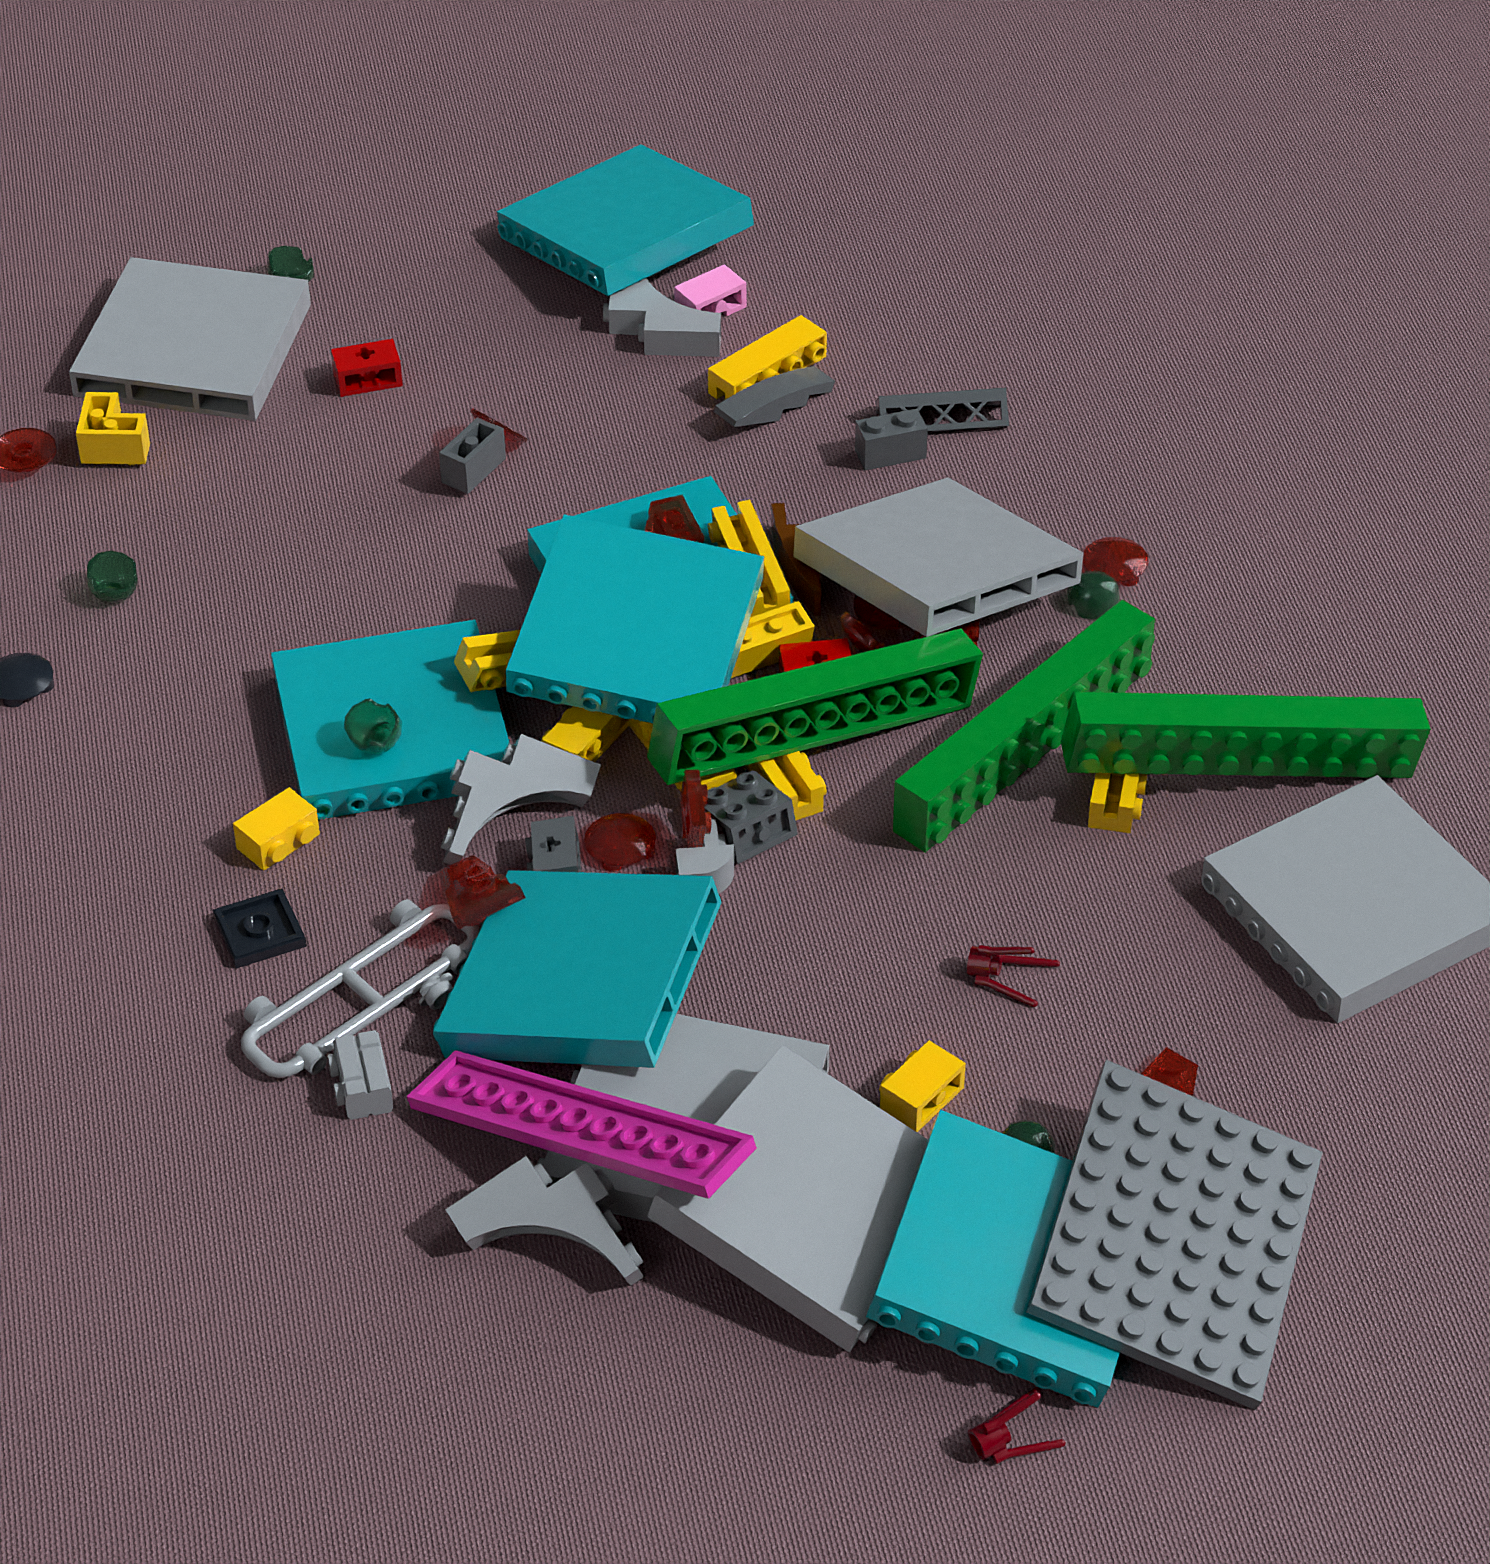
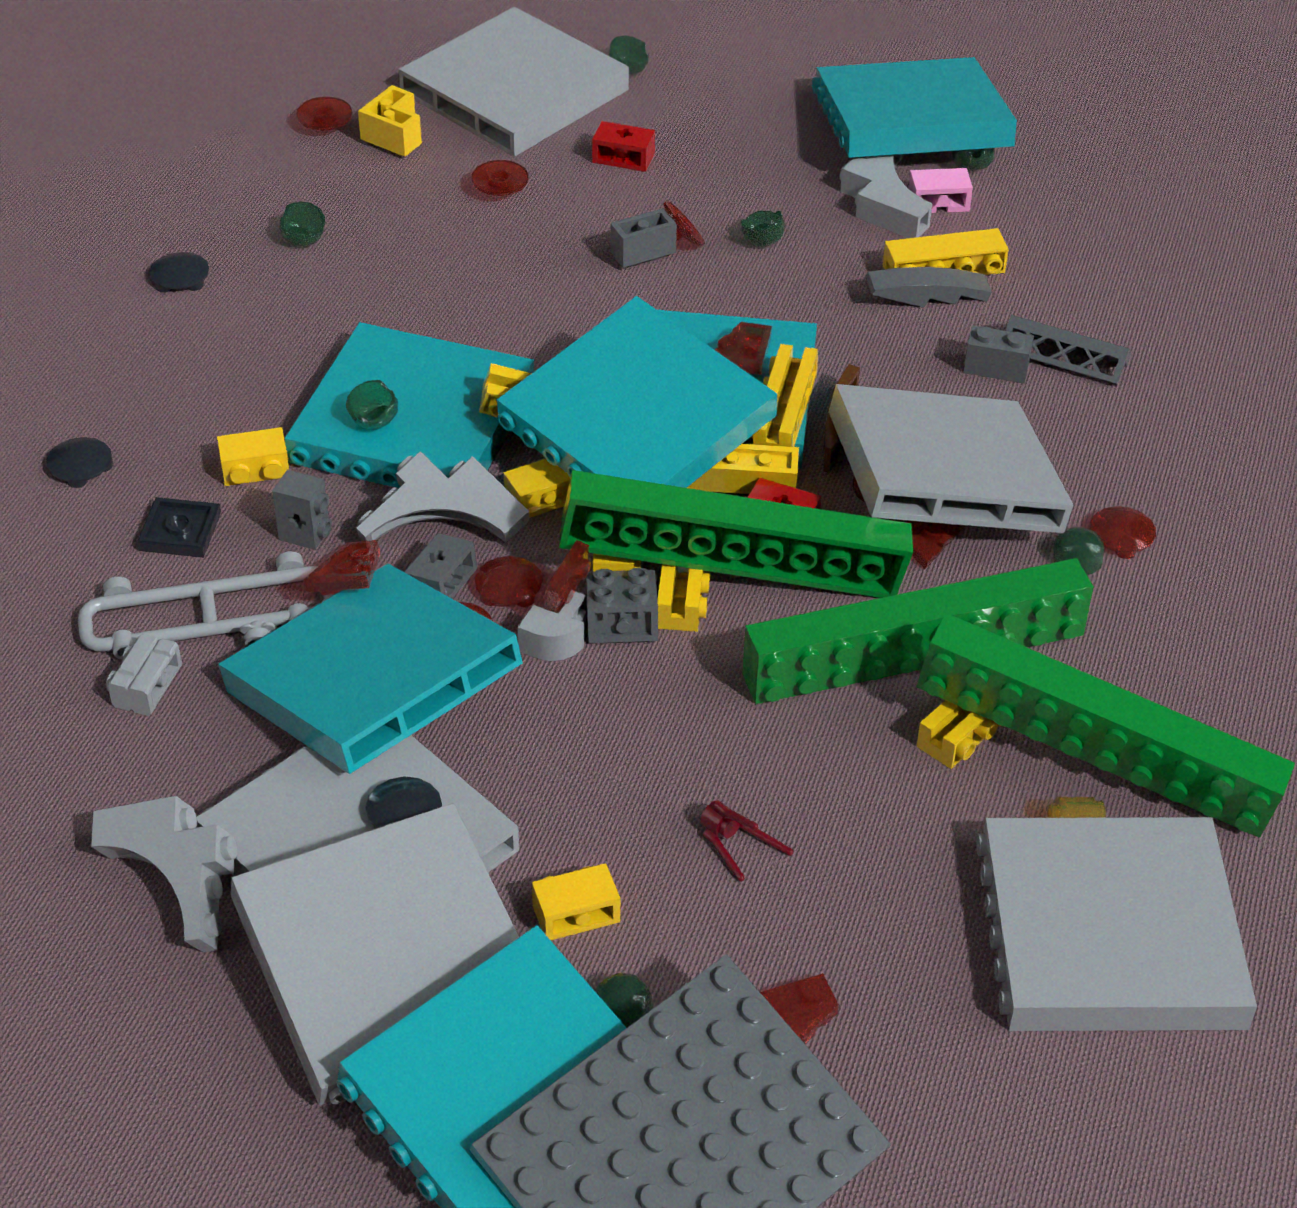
camera: 30 degrees right, 0 degrees up
(97, 908) = (79, 460): none -> black dish
(270, 448) = (500, 177): none -> clear red dish
(382, 856) = (301, 509): none -> dark grey brick
(575, 399) = (763, 228): none -> clear green hair
(583, 1123) = (245, 796): dark pink plate -> none
(717, 253) = (974, 158): none -> clear green hair
(719, 1073) = (400, 800): none -> black dish
(858, 633) = (833, 496): clear red dish -> none
(1263, 817) = (1076, 808): none -> clear yellow brick

